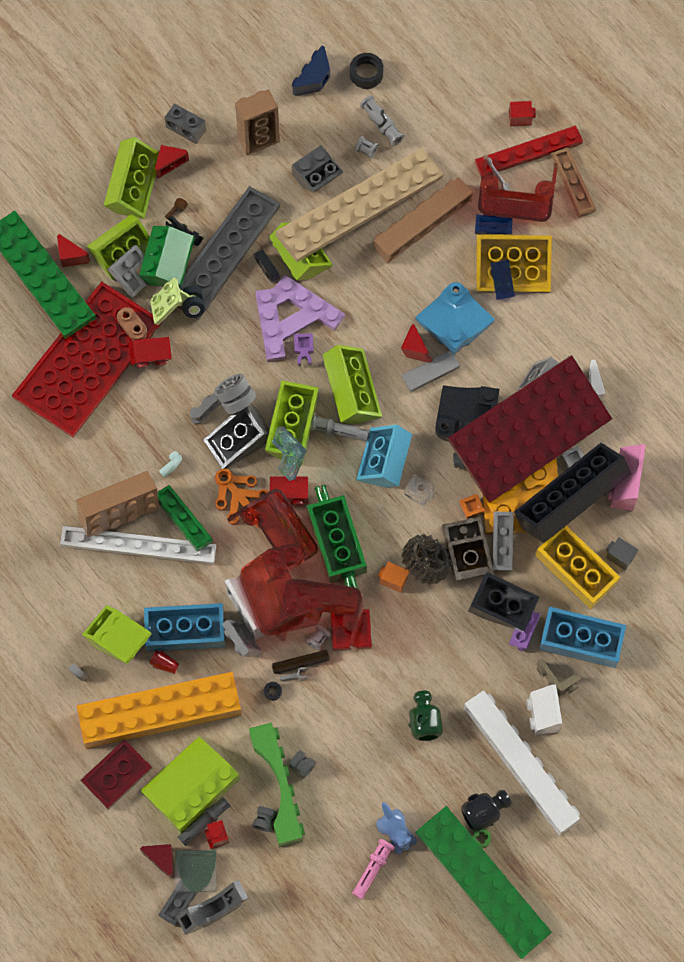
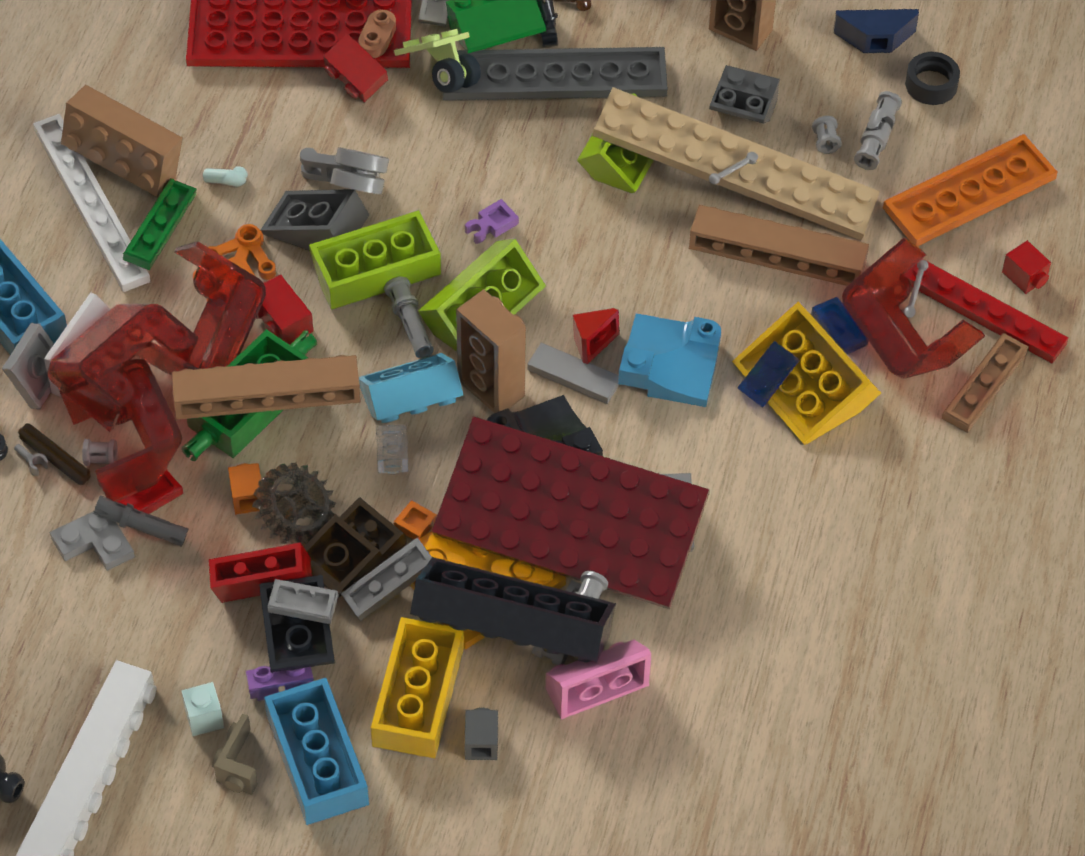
camera: 55 degrees right, 15 degrees down
(266, 266) = (572, 123): black beam -> none
(292, 451) = (321, 267): clear light blue plate -> none
(311, 306) = (498, 182): lavender plate -> none
(352, 527) = (266, 387): none -> medium nougat brick
(367, 194) = (751, 158): none -> light grey hinge
(368, 667) = (95, 533): none -> light grey plate
(374, 646) = (129, 516): none -> dark grey pin
(410, 402) = (491, 351): none -> medium nougat brick
(425, 718) = (66, 630): dark green piece -> none
(452, 105) = (969, 190): none -> orange plate
(459, 601) = (240, 574): none -> red brick
(500, 590) = (302, 601): none -> light grey plate
(518, 678) = (202, 709): none -> light aqua brick
(545, 710) = (176, 767): white slope -> none
(578, 448) = (592, 584): none -> light grey bush
(595, 379) = (709, 563): white slope -> none

